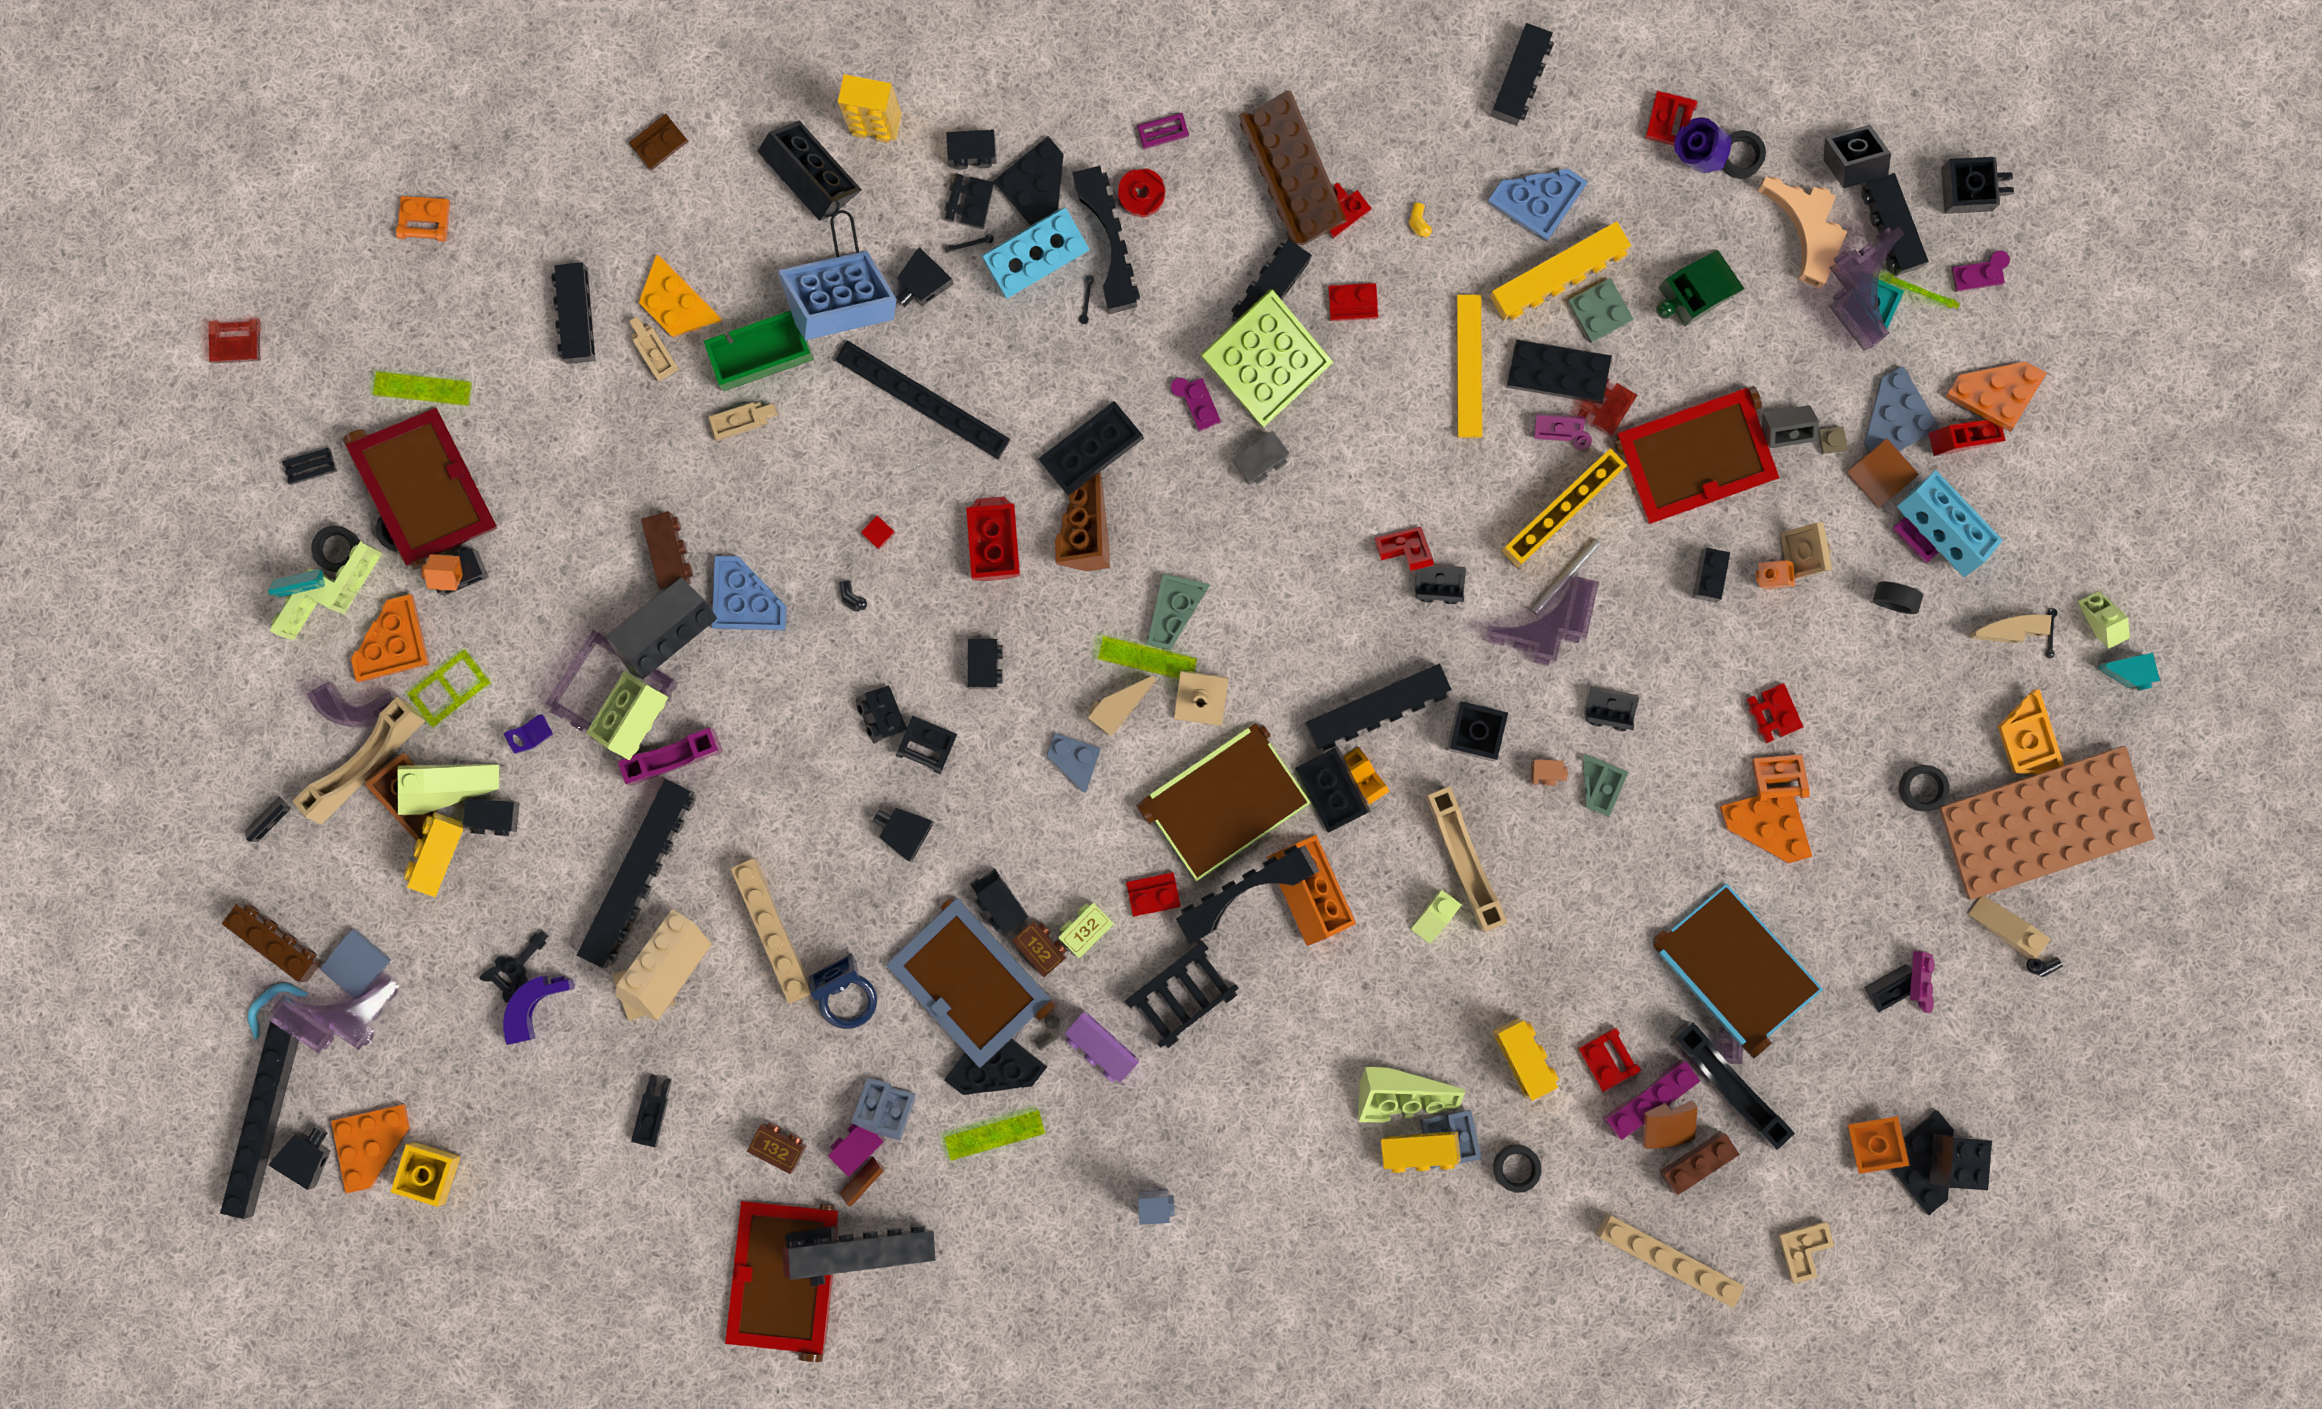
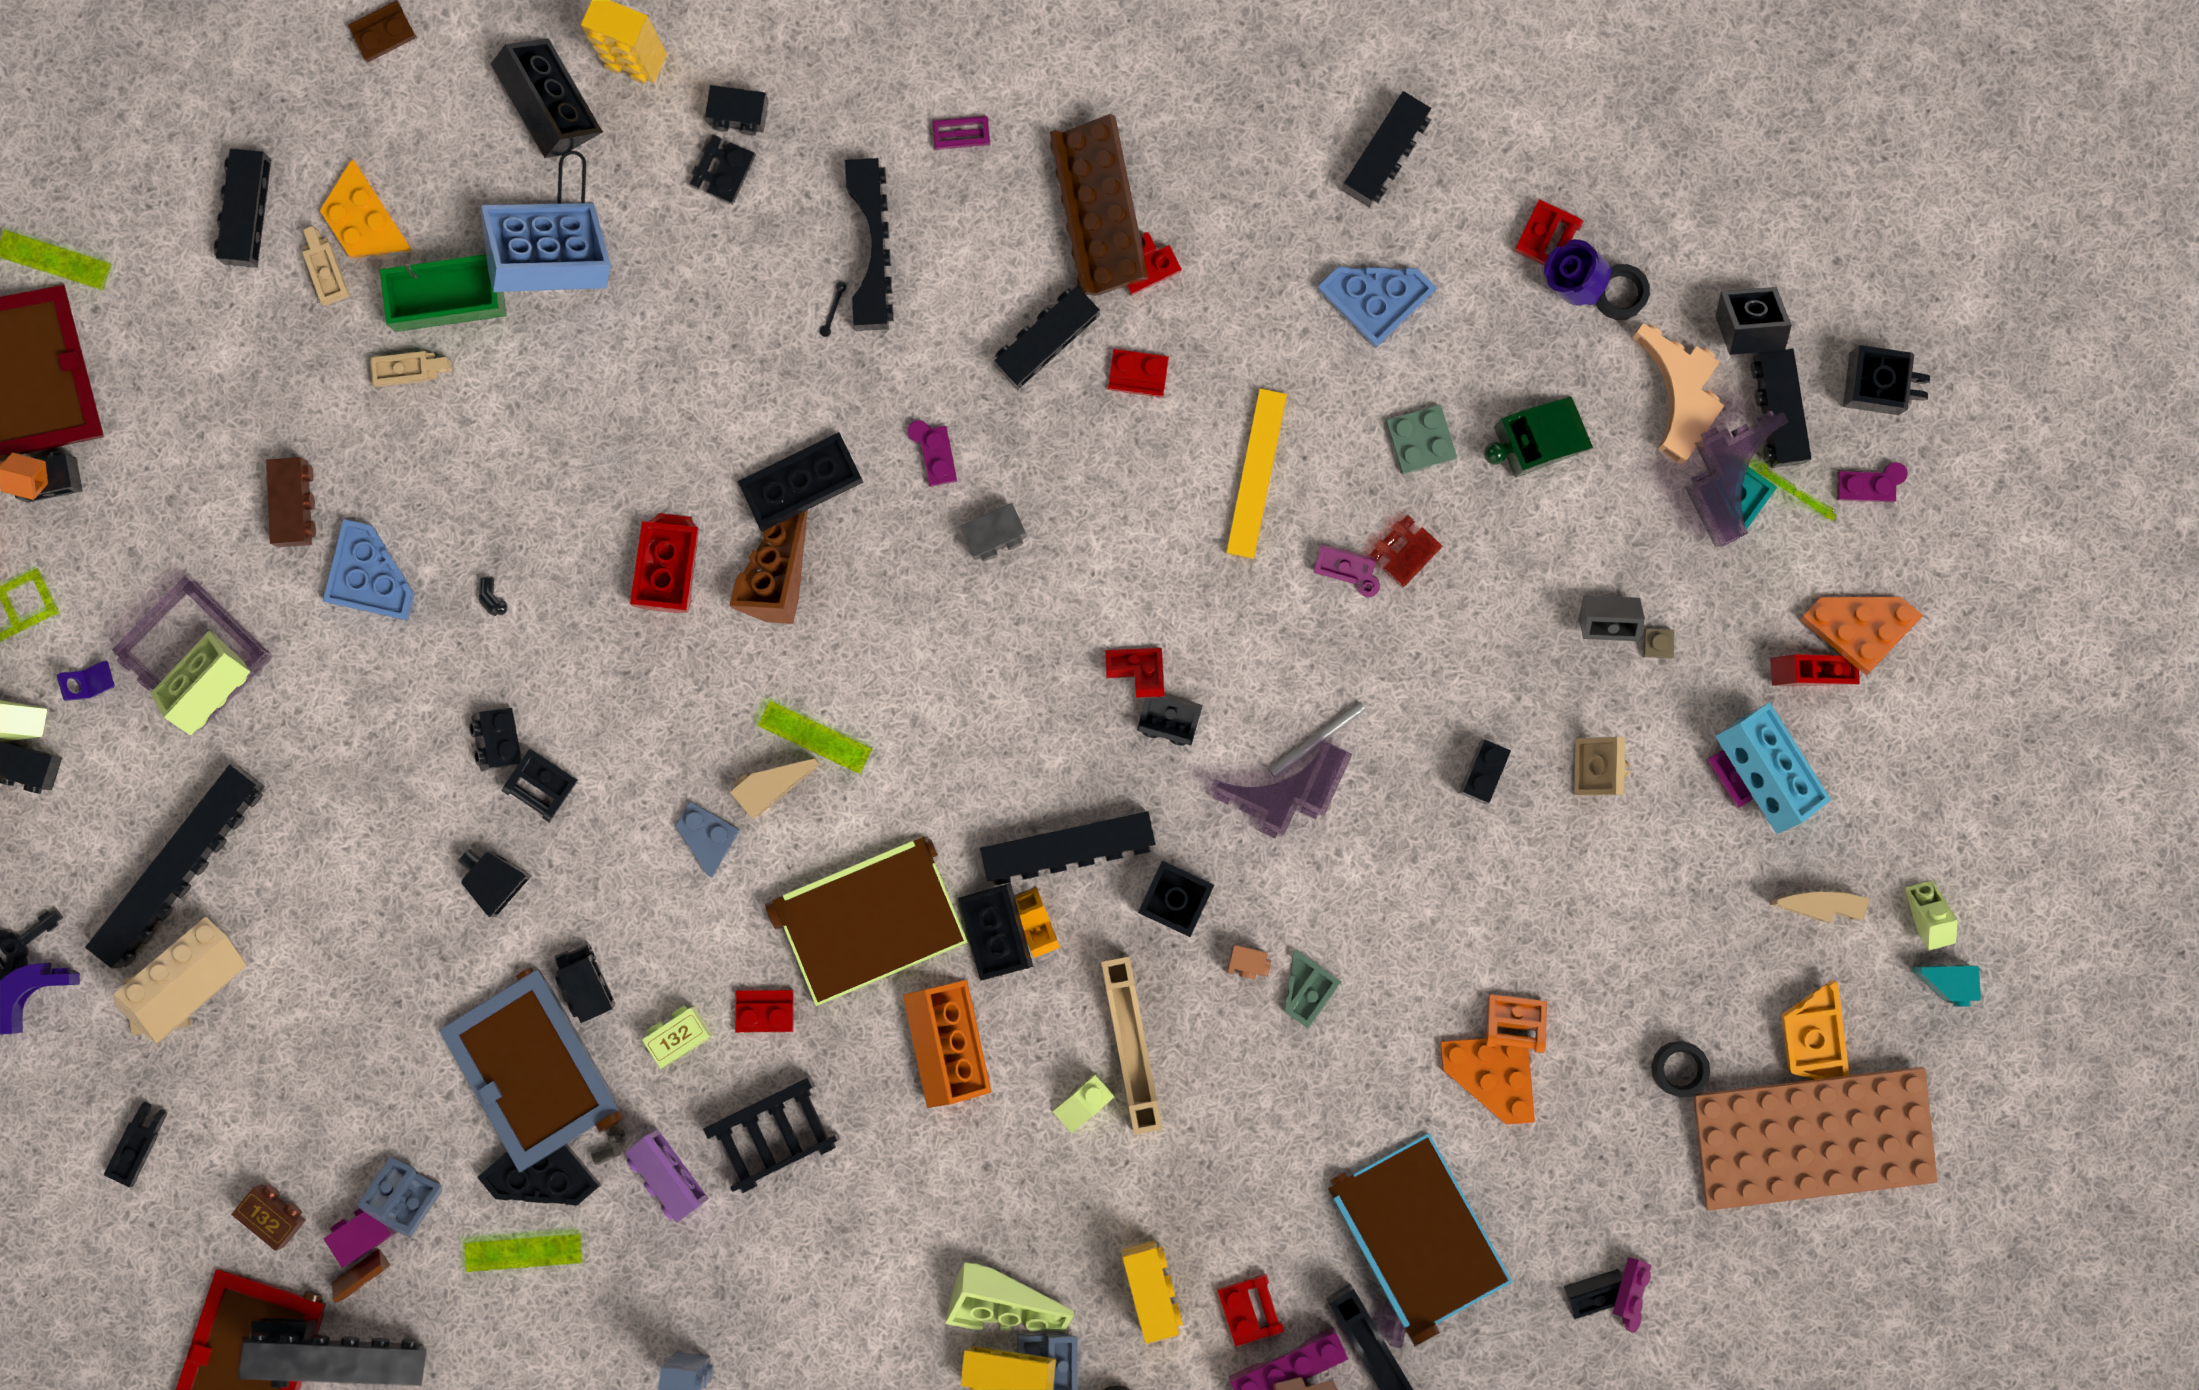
camera: 10 degrees right, 0 degrees up
(423, 211) = (98, 57): orange plate -> none
(660, 628) = (259, 590): black slope -> none
(671, 757) = (242, 741): magenta arch -> none
(771, 930) = (308, 929): tan arch -> none
(834, 980) = (374, 1036): dark blue tile -> none
(877, 532) = (537, 529): red tile -> none
(921, 280) = (647, 249): black torso -> none
(922, 400) = (621, 387): black tile -> none
(983, 664) = (625, 705): black brick -> none
(988, 238) = (735, 217): black hinge -> none
(1034, 182) = (802, 166): black plate -> none
(1039, 948) = (619, 1047): copper brick -> none
(1050, 258) = (776, 262): medium azure brick -> none
(1139, 179) = (922, 183): red plate -> none
(1173, 609) = (857, 686): sand green wing -> none
(1201, 698) = (866, 795): tan tile -> none
(1266, 358) = (1022, 418): lime plate -> none
(1289, 870) = (919, 1018): black arch -> none
(1416, 221) = (1231, 296): yellow arm -> none
(1559, 371) = (1358, 500): black plate -> none
(1560, 271) = (1383, 385): yellow brick -> none
(1563, 508) = (1330, 660): yellow brick -> none
(1611, 708) = (1336, 903): black bracket -> none
(1698, 455) = (1499, 629): reddish brown door -> none
(1775, 574) = (1559, 786): orange brick -> none
(1781, 711) = (1534, 945): red plate -> none
(1882, 473) = (1708, 693): dark orange slope -> none
(1898, 413) = (1739, 631): sand blue plate -> none
(1898, 597) = (1695, 842): black tyre -> none
(2009, 927) = (1746, 1252): tan slope -> none
(2043, 968) = (1776, 1307): black arm -> none
(2049, 652) = (1860, 941): black hinge -> none

